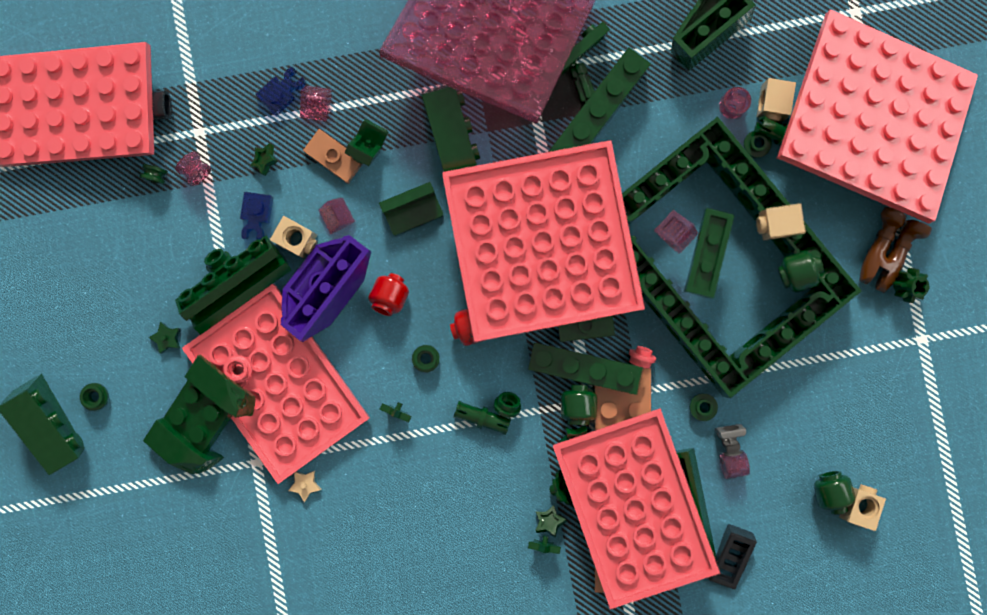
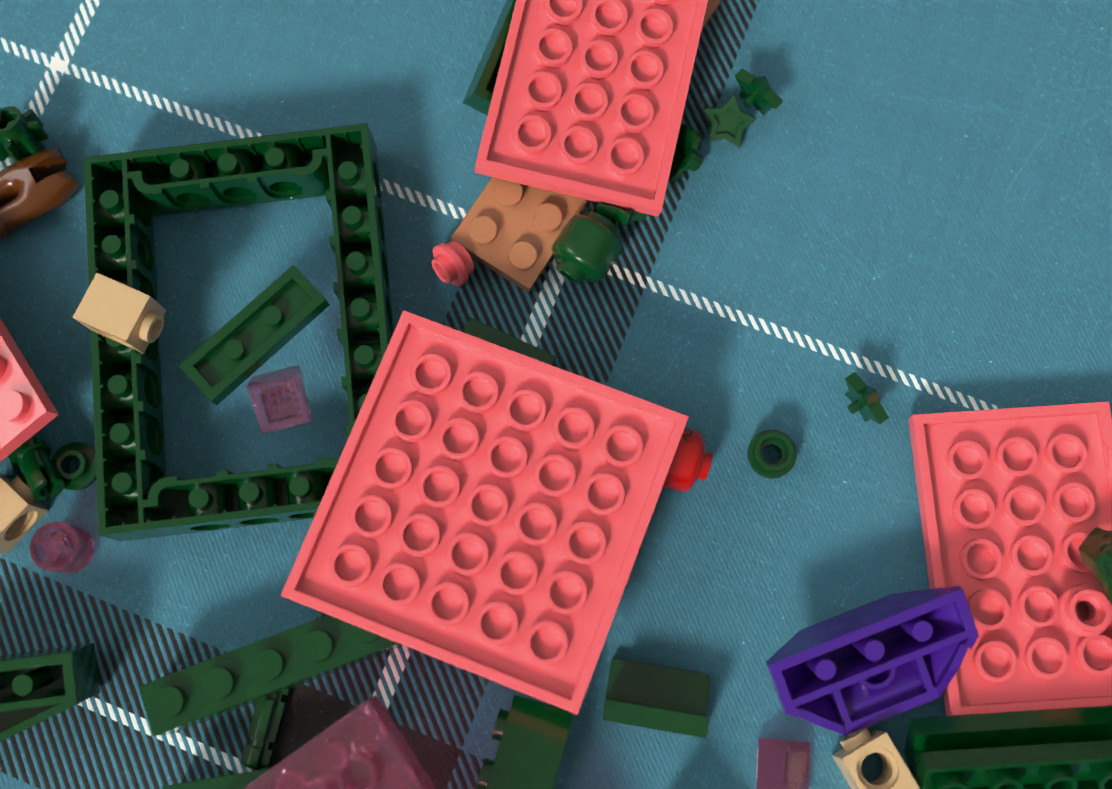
camera: 145 degrees left, 10 degrees down
(304, 484) = (1063, 380): tan piece -> none
(388, 294) = (773, 583): red head -> none
(482, 417) = (738, 318): dark green pin -> none
(507, 404) = (683, 319): dark green plate -> none
(586, 368) = (543, 293): dark green plate -> none
(695, 407) = (416, 158): dark green plate -> none
(733, 460) = (418, 53): leg -> none
(800, 271) = (145, 227): dark green head -> none

